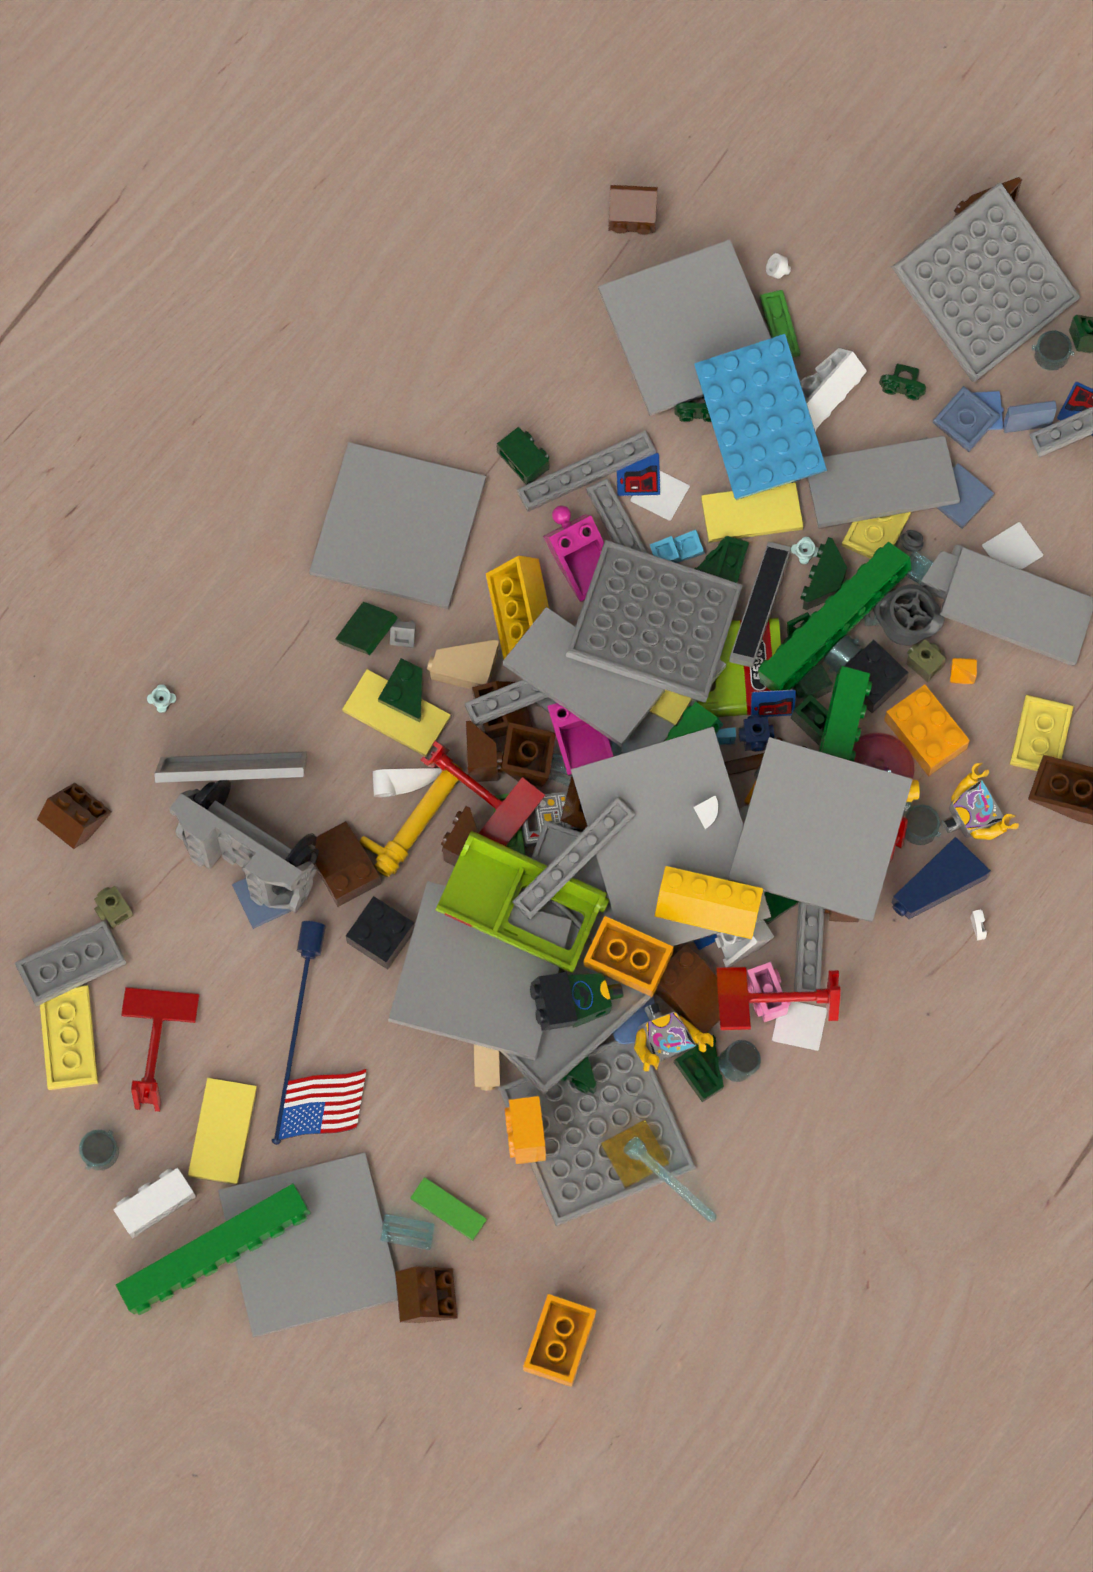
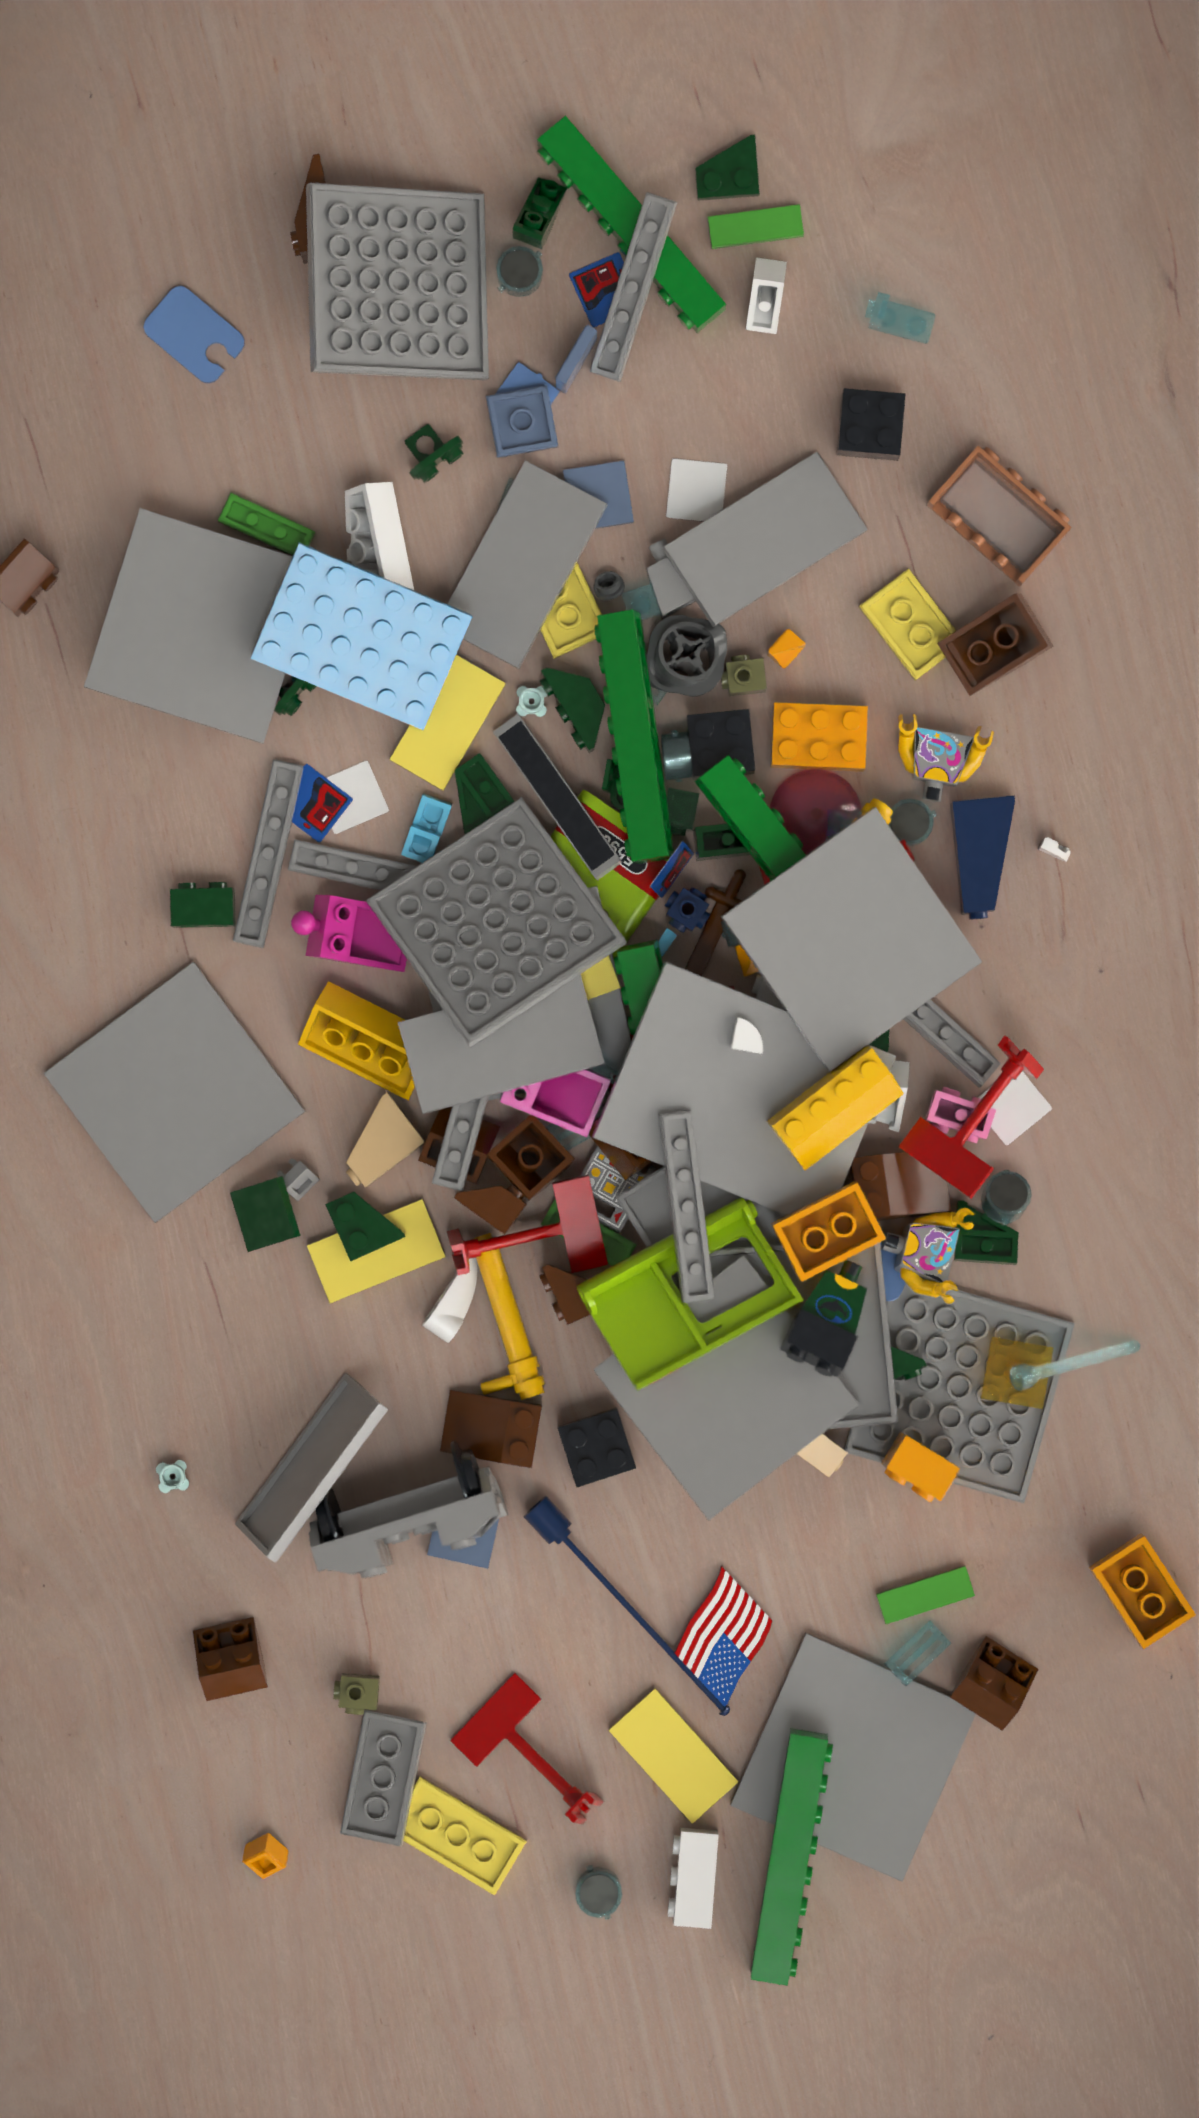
camera: 55 degrees left, 15 degrees up
(777, 266) = (201, 477): white tile -> none
(857, 195) = (187, 328): none -> medium blue piece

